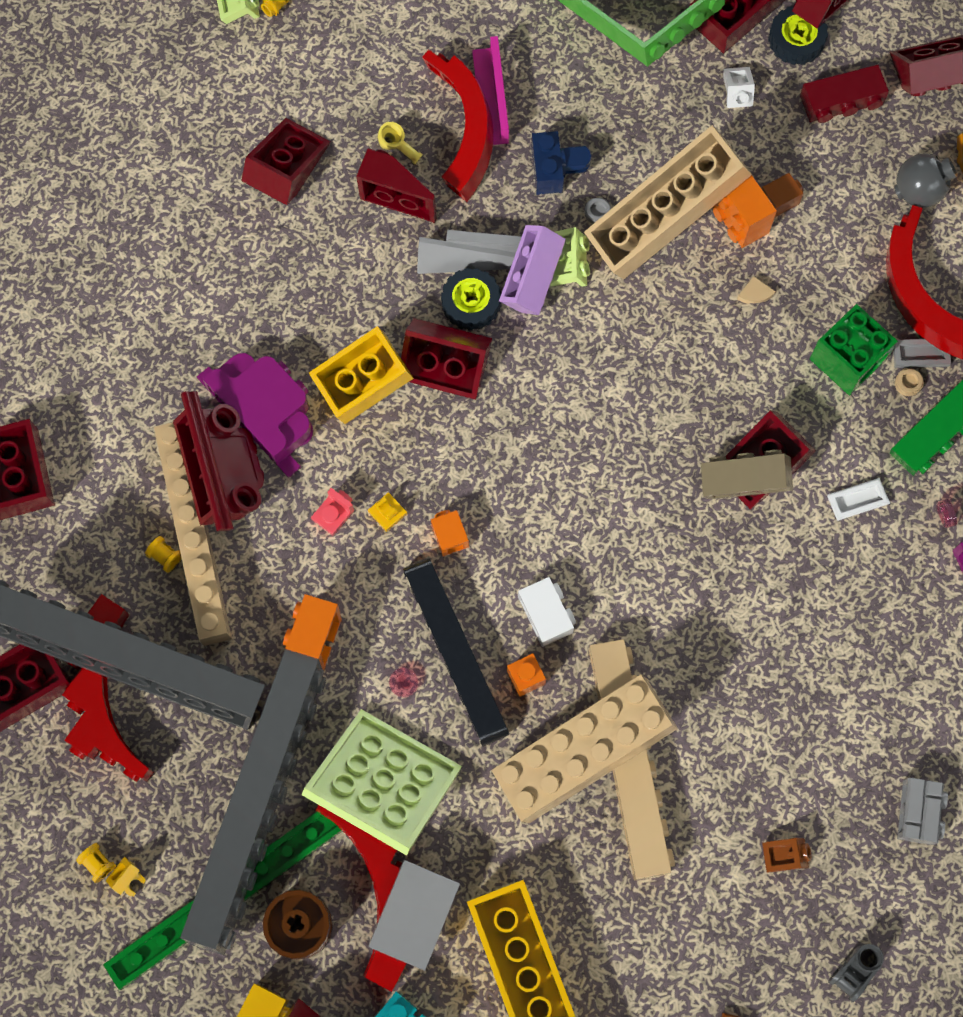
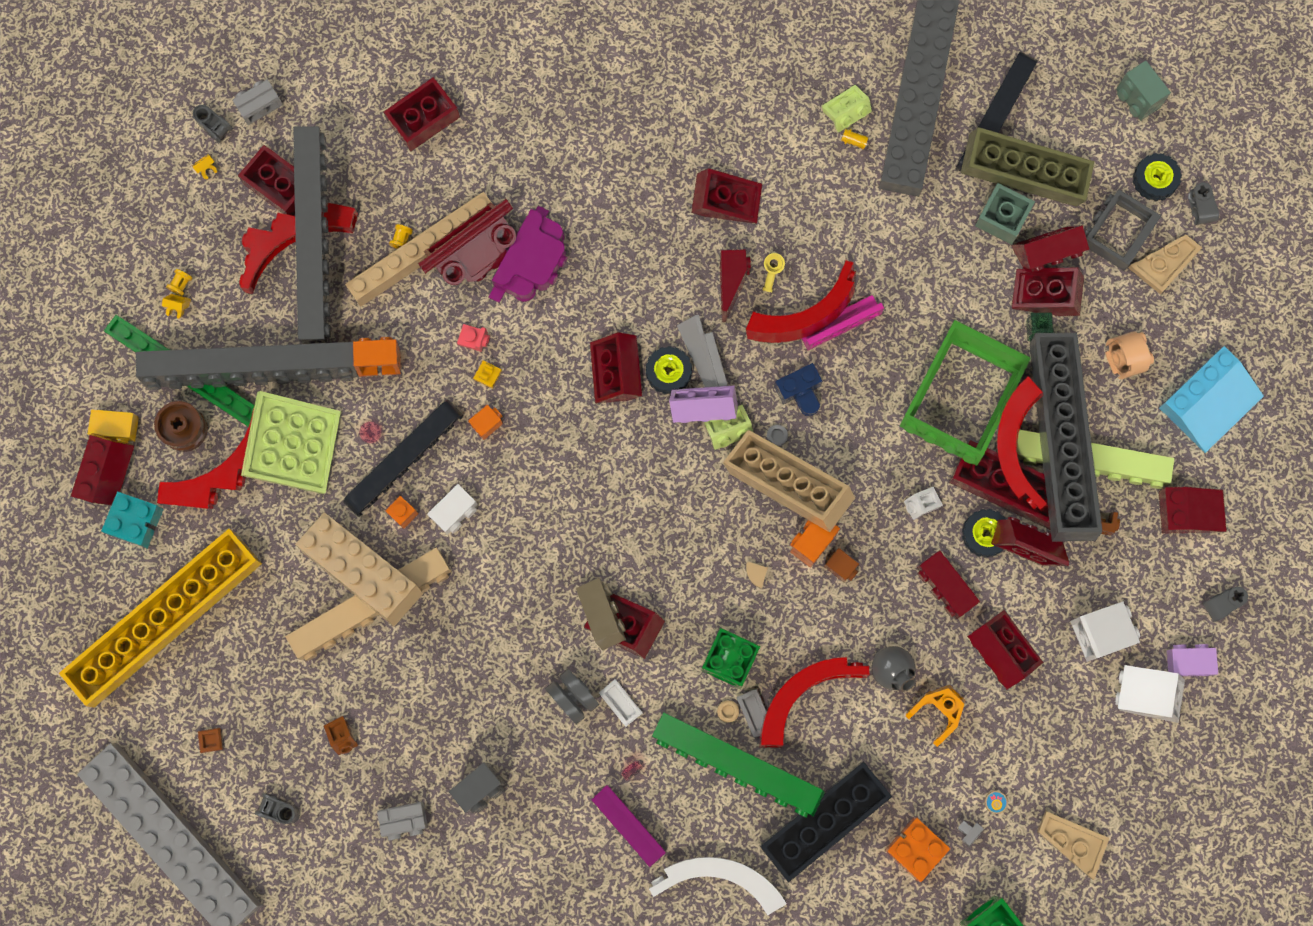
camera: 70 degrees right, 5 degrees up
(361, 375) = (575, 315): yellow brick -> none
(414, 915) = (209, 497): light grey tile -> none
(837, 546) = (574, 694): none -> dark grey wheel
(920, 694) = (478, 788): none -> dark grey brick

